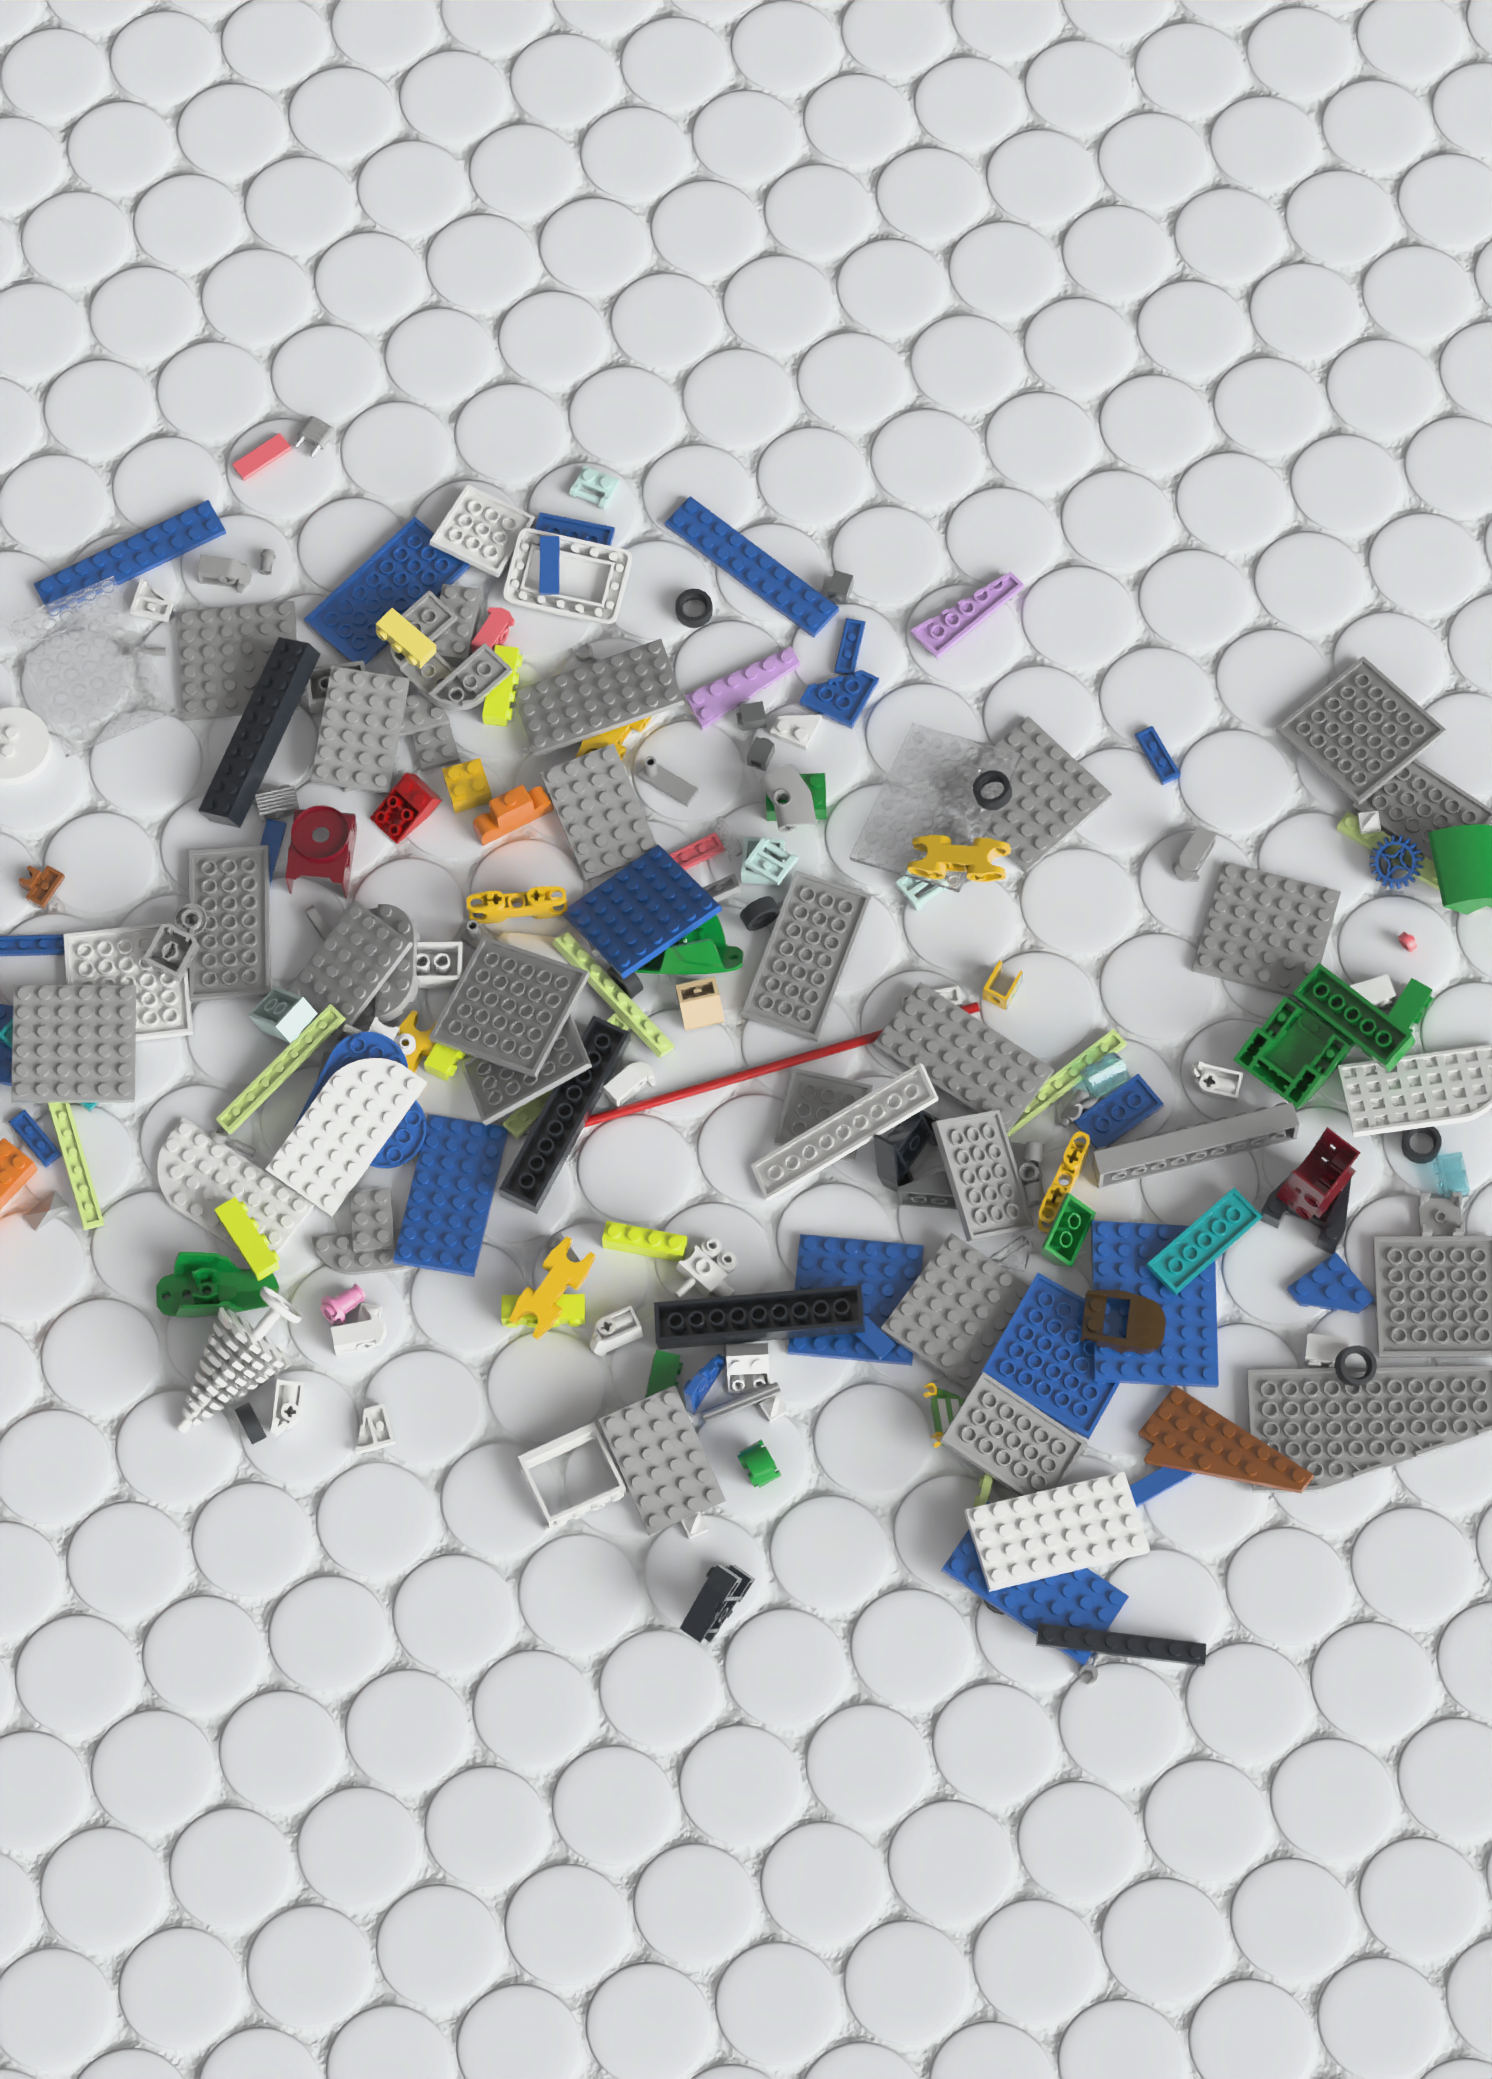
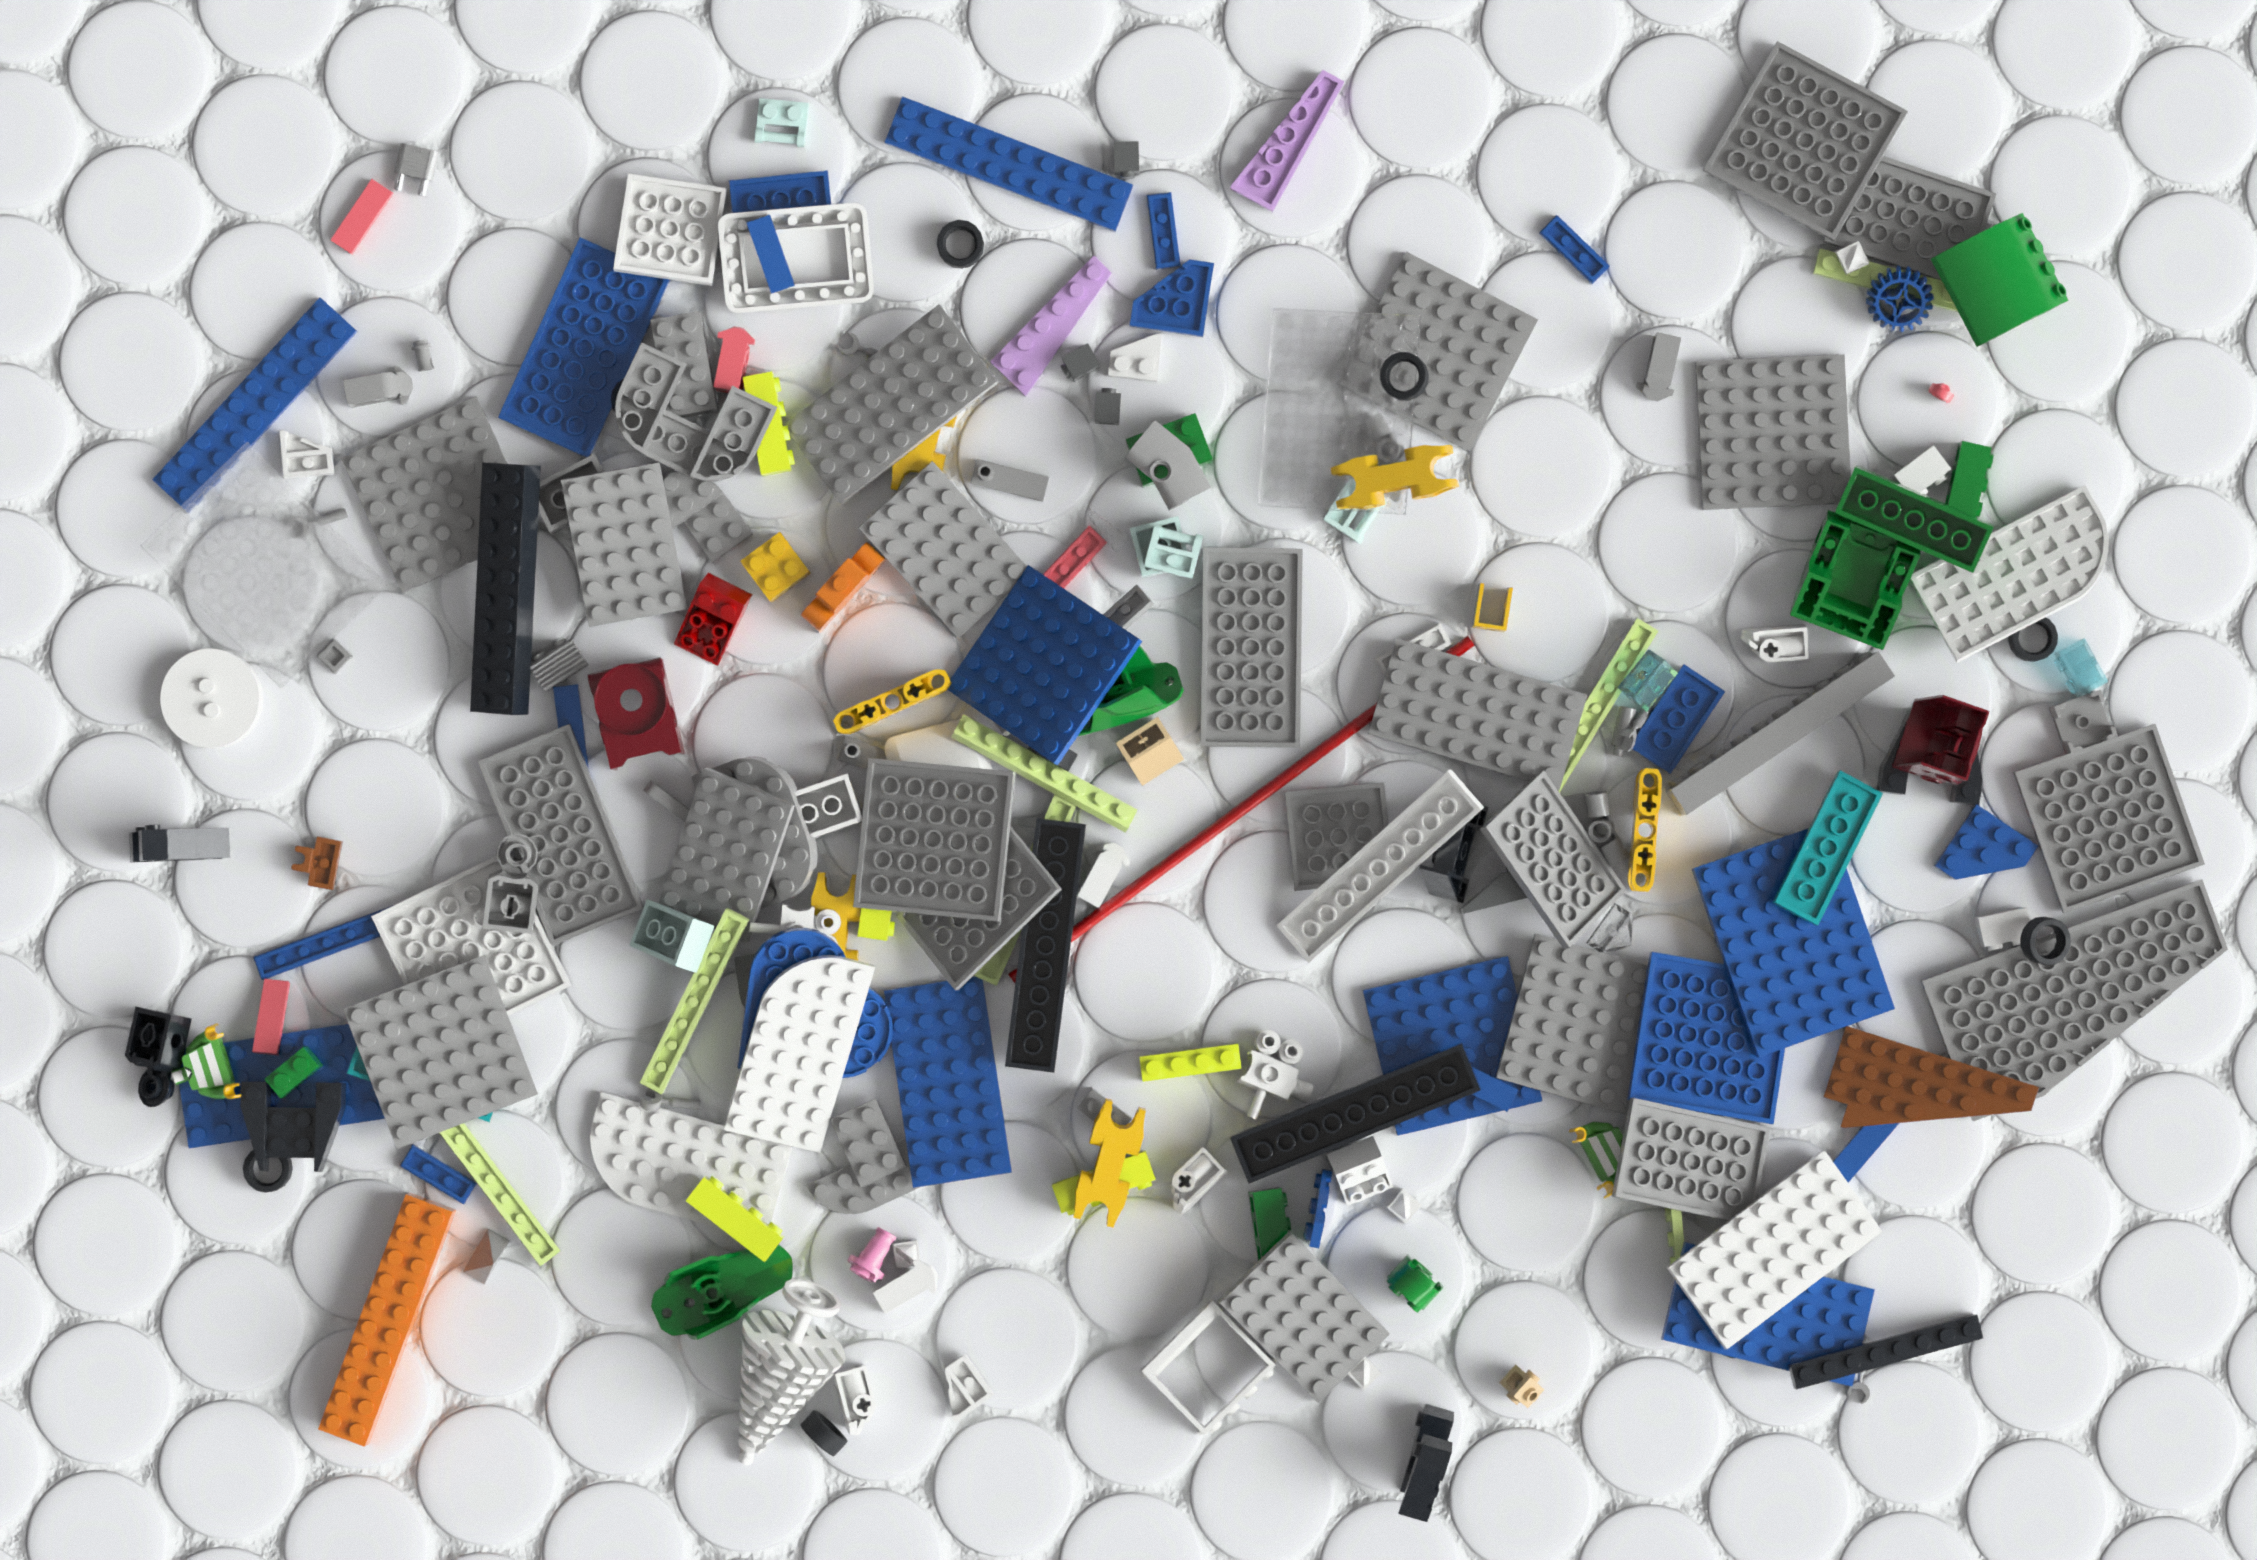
camera: 25 degrees left, 20 degrees up
(114, 747) = (334, 656): none -> light grey tile
(405, 638) = (638, 419): light yellow brick -> none
(741, 1402) = (1366, 1214): light grey axle -> none
(759, 913) = (1180, 615): black tyre -> none
(816, 1573) = (1521, 1386): none -> tan brick
(1067, 1232) = (1670, 890): green slope -> none
(1144, 1323) = (1794, 976): dark brown slope -> none

